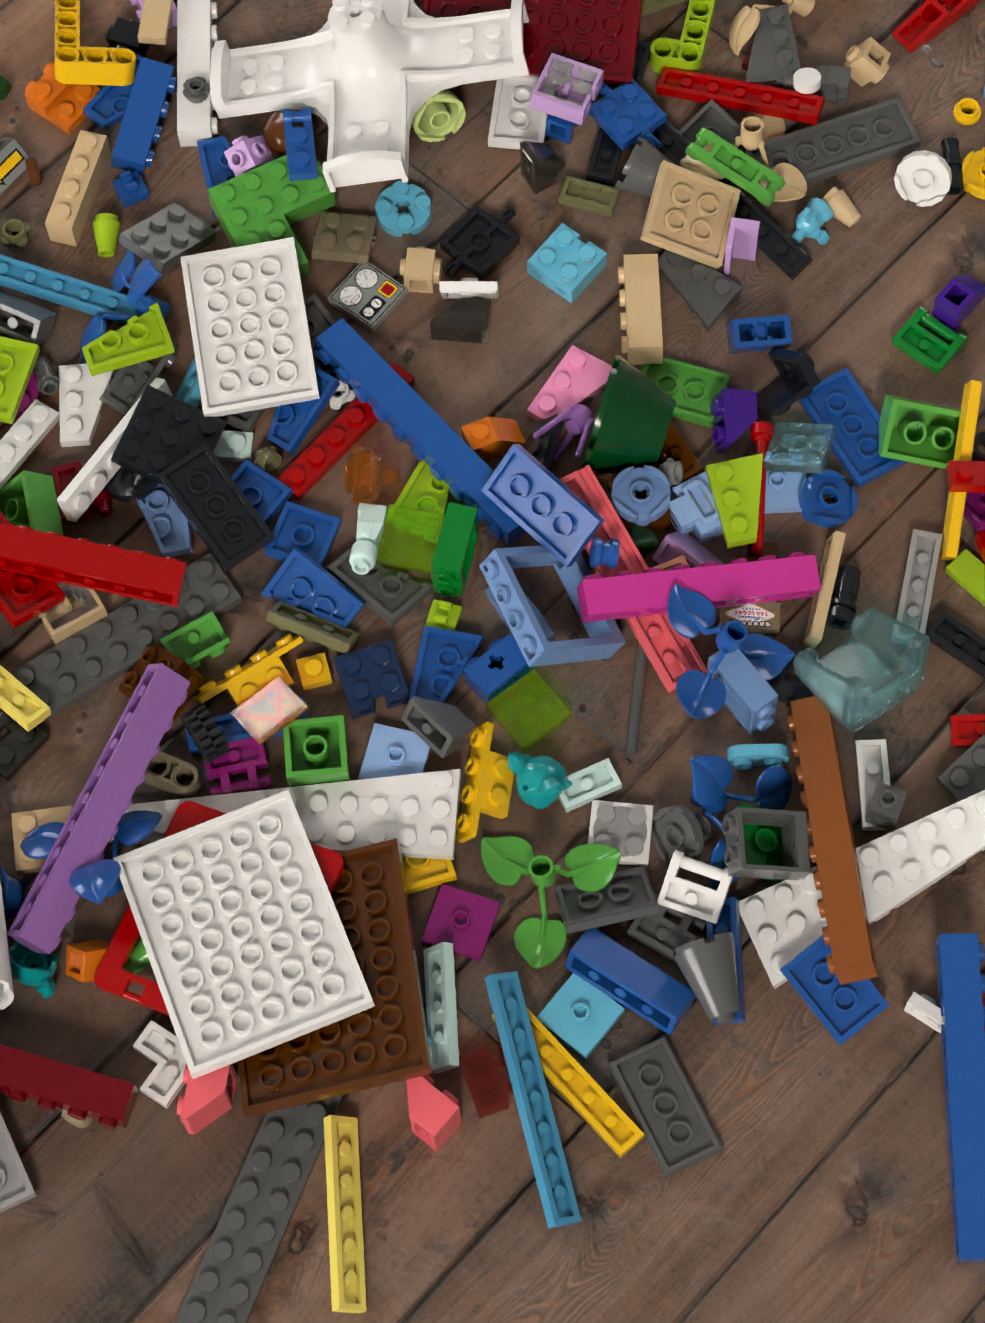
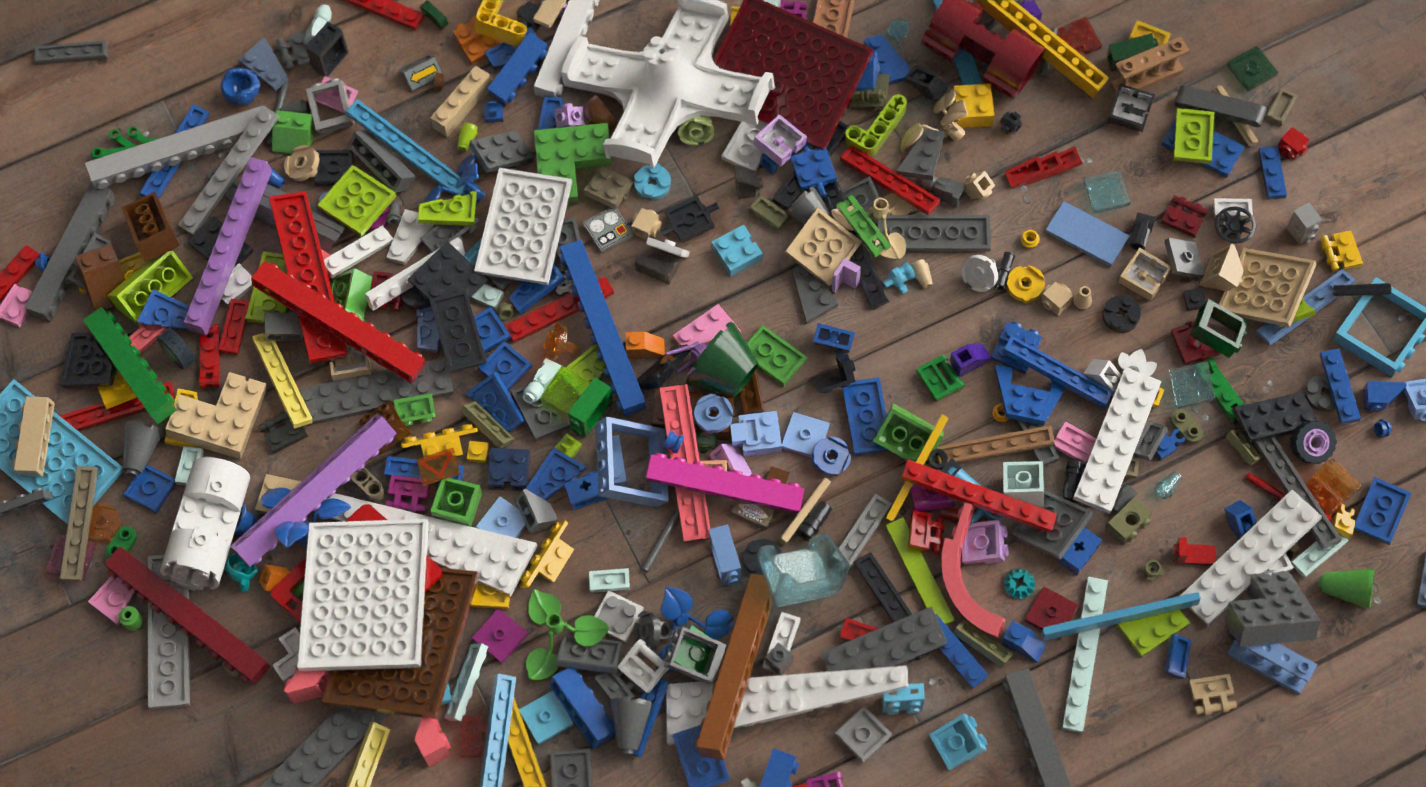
camera: 20 degrees right, 0 degrees up
(14, 226) = (413, 112): olive plate -> none
(196, 95) = (555, 67): dark grey plate -> none
(205, 733) = (394, 467): black tyre -> none
(300, 145) = (599, 121): blue plate -> none
(528, 710) = (594, 522): clear neon green plate -> none
(538, 778) = (580, 565): teal hair -> none
(542, 505) = (648, 399): plate -> none
(642, 309) = (769, 296): tan brick -> none
(672, 470) = (741, 405): light grey plate -> none
(694, 613) = (712, 498): blue plant -> none
(733, 414) = (796, 382): dark purple slope -> none
(736, 496) = (773, 434): lime wing -> none
(750, 755) = (725, 602): medium azure plate -> none
(761, 434) = (807, 402): red piece -> none
(799, 447) = (826, 418): clear light blue plate -> none
(807, 80) = (933, 185): white tile -> none

